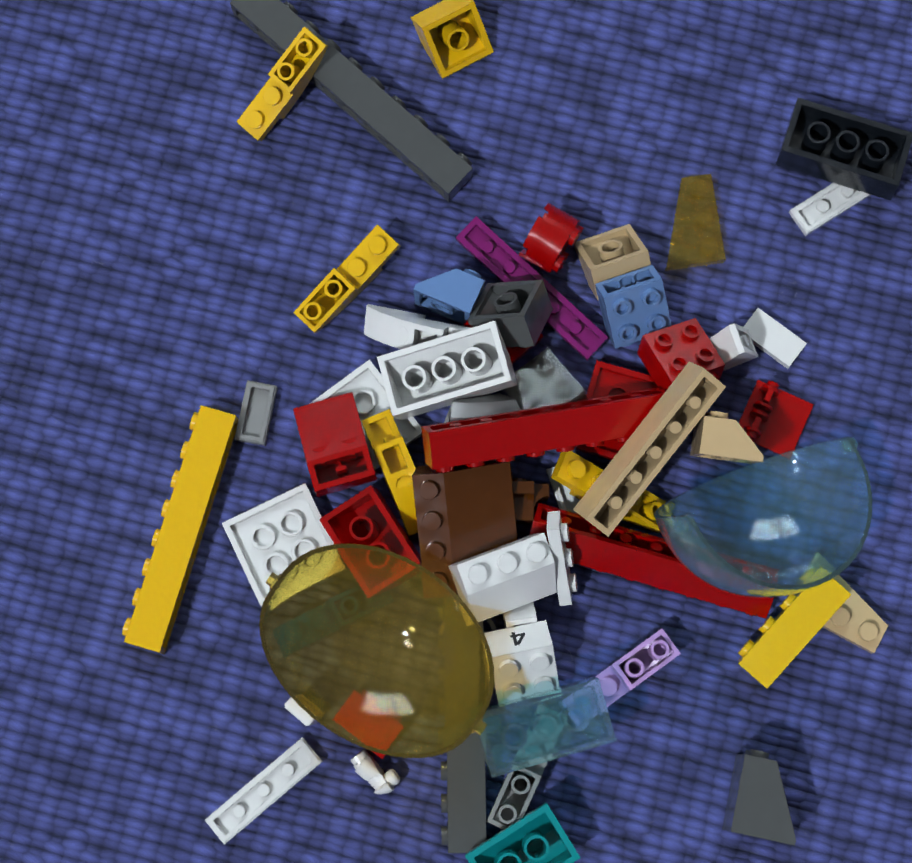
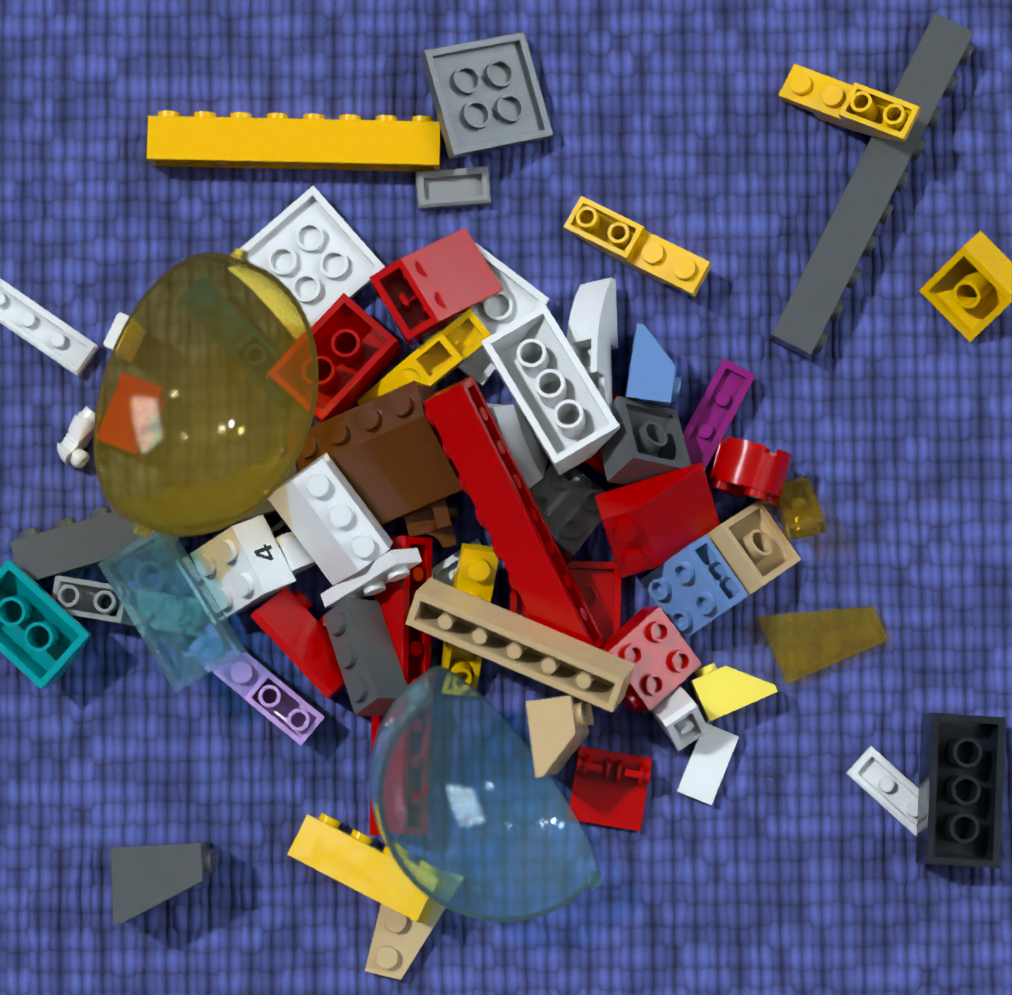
camera: 75 degrees right, 5 degrees up
(189, 364) = (486, 95): none -> plate
(572, 319) = (657, 517): none -> red slope
(594, 210) = (800, 510): none -> clear yellow slope
(597, 625) = (302, 639): none -> red slope
(624, 579) = (365, 655): none -> dark grey brick
(720, 304) = (727, 690): none -> light yellow slope

